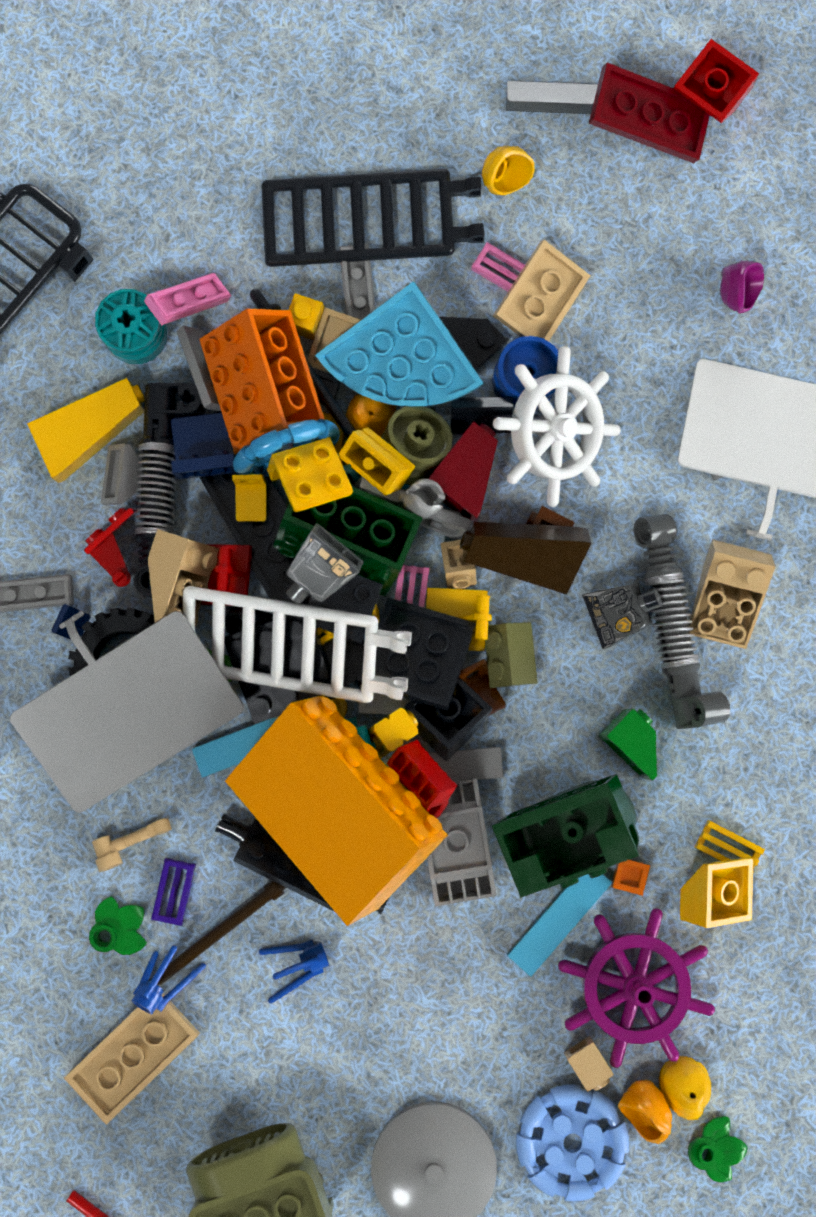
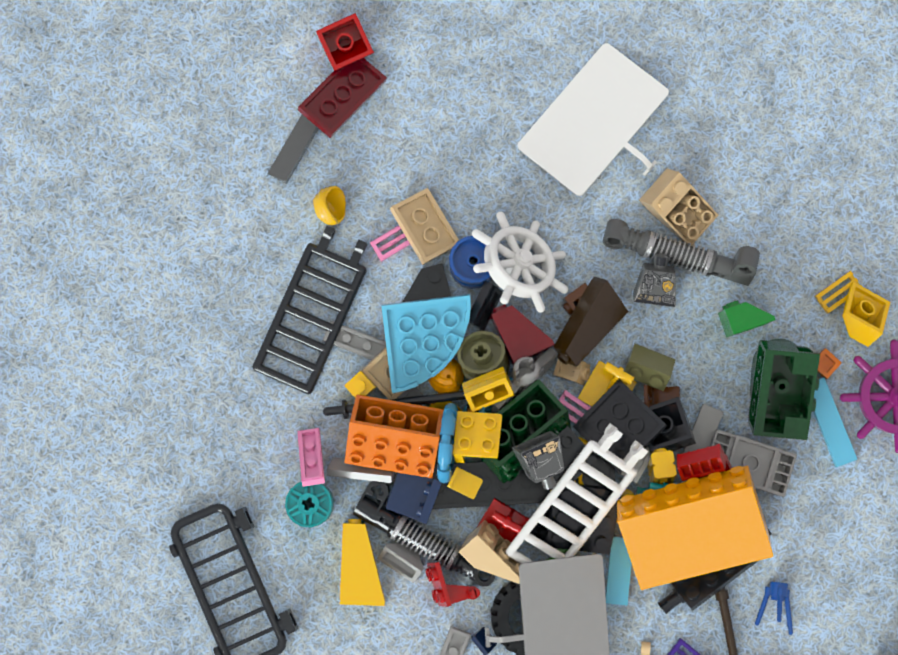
camera: 65 degrees left, 0 degrees up
(741, 285) = (484, 95): magenta hair -> none

